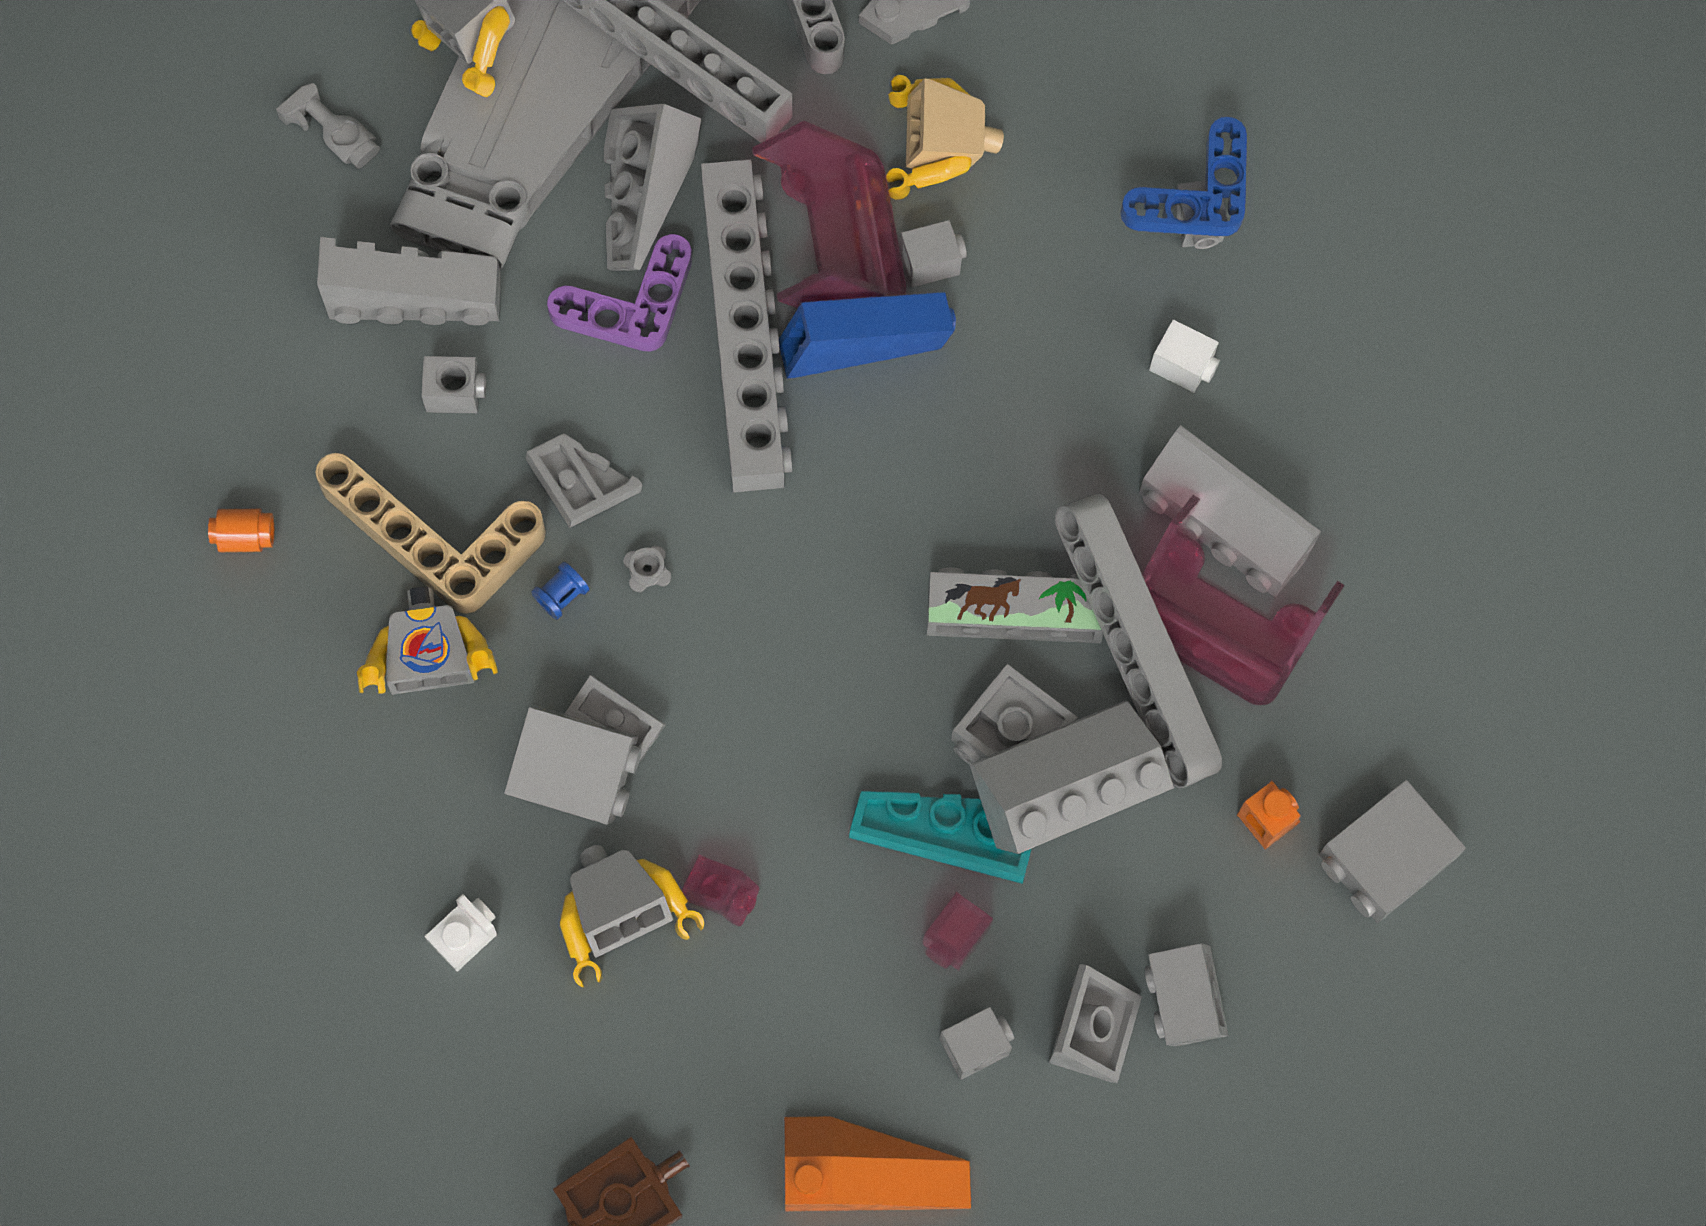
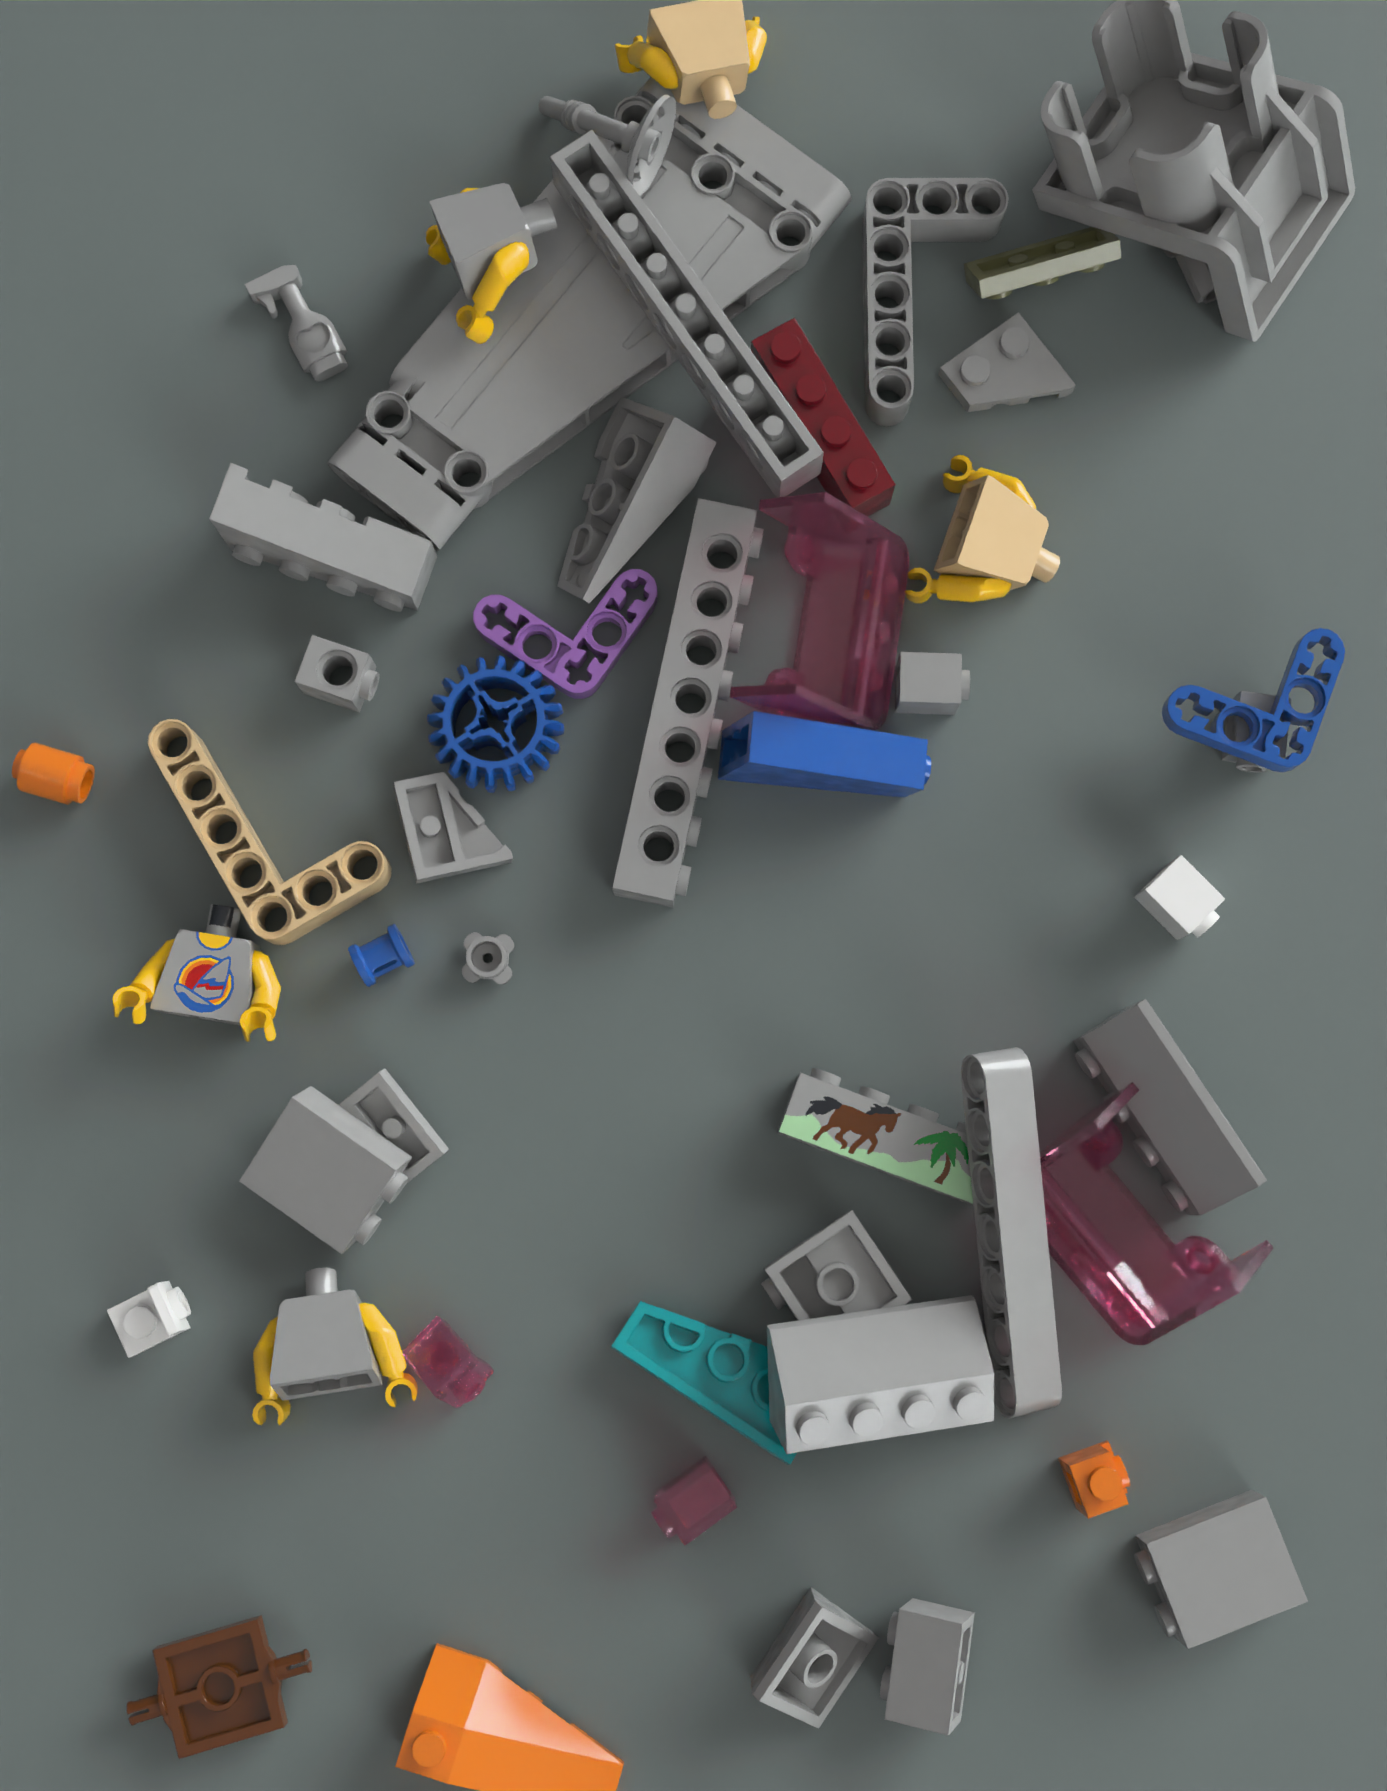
camera: 20 degrees right, 10 degrees up
(611, 359) = (474, 688): none -> blue gear
(811, 97) = (850, 463): none -> dark red brick
(977, 1042) = (674, 1637): light grey brick -> none

